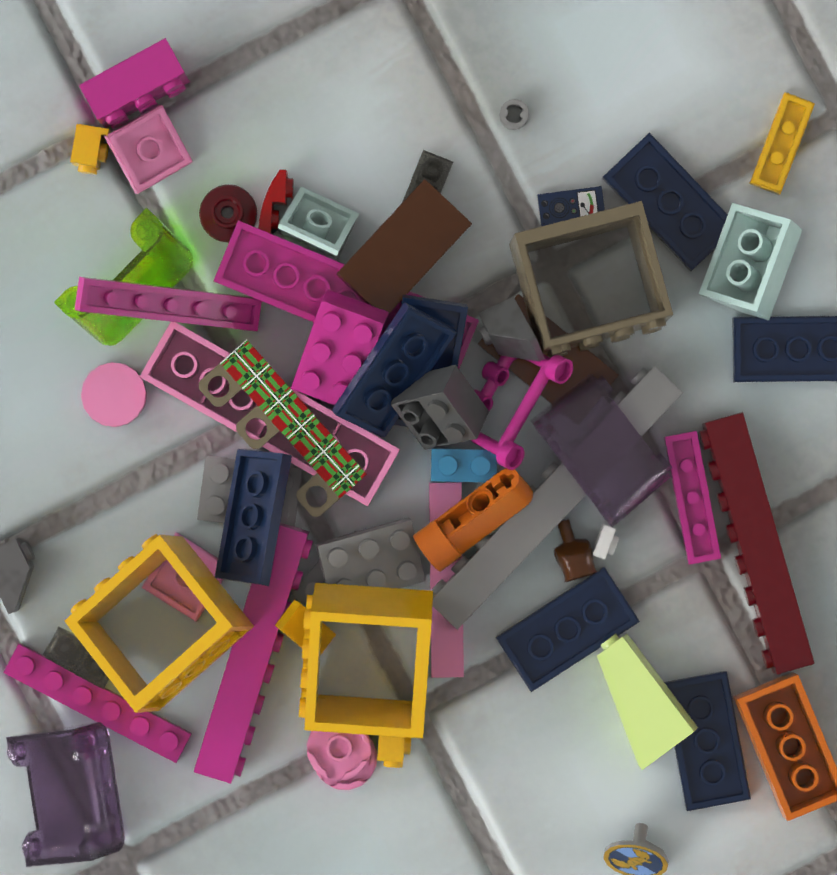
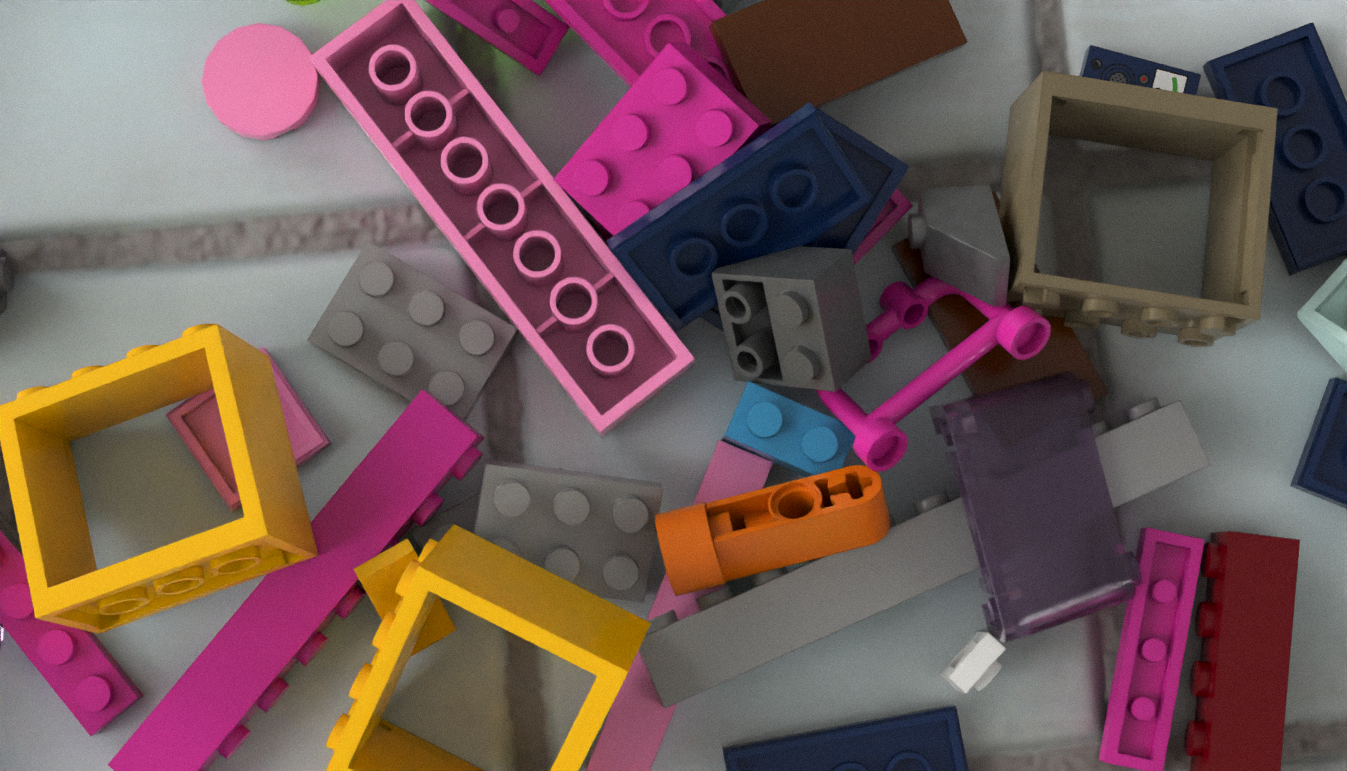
camera: 20 degrees right, 5 degrees down
(253, 517) = (397, 369): dark blue plate -> none
(288, 414) = (530, 219): piece -> none
(573, 554) = (912, 663): reddish brown piece -> none

